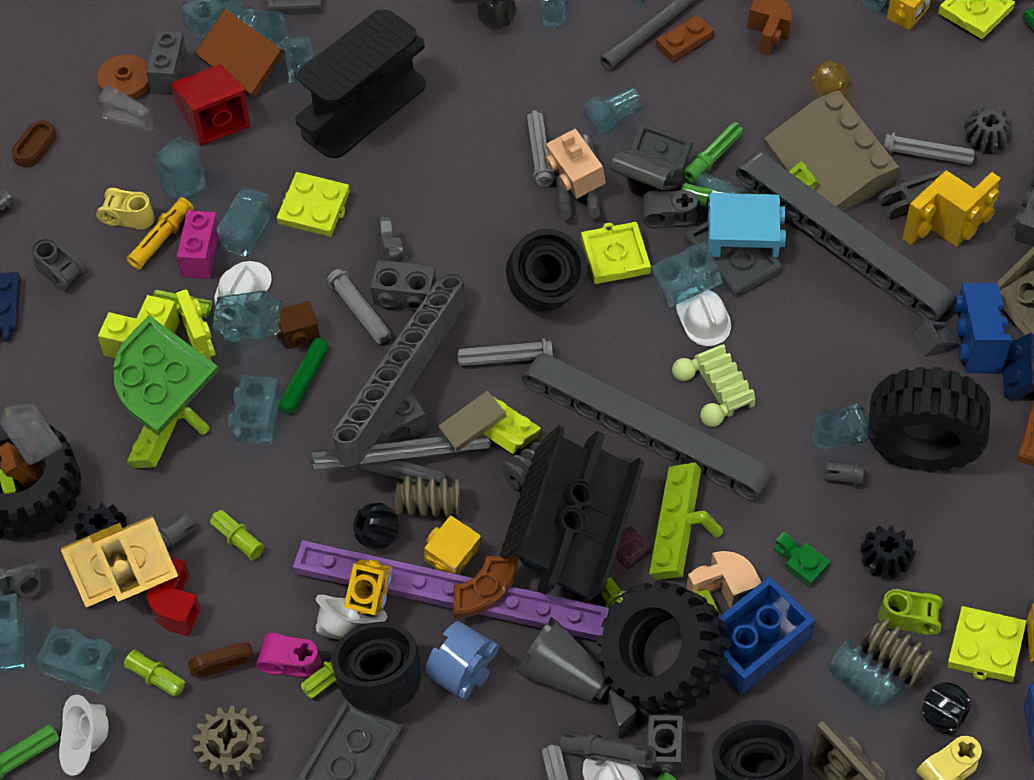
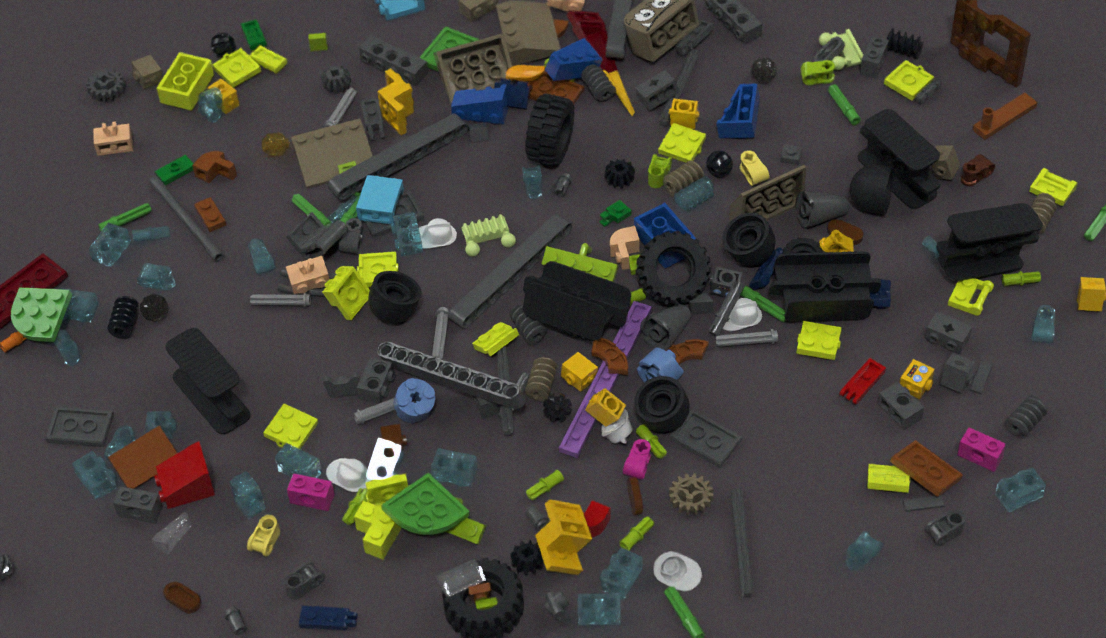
camera: 80 degrees left, 5 degrees down
(125, 74) = (136, 545): dark orange plate -> none
(167, 224) = (284, 512): yellow pin -> none
(303, 376) = (427, 440): green axle -> none
(361, 333) = (417, 390): none -> medium blue brick
(472, 421) = (496, 346): dark tan tile -> none
(523, 700) = (689, 350): none -> dark orange tile
(554, 209) = (347, 291): none -> neon yellow plate
(1006, 41) = (268, 59): none -> neon yellow plate

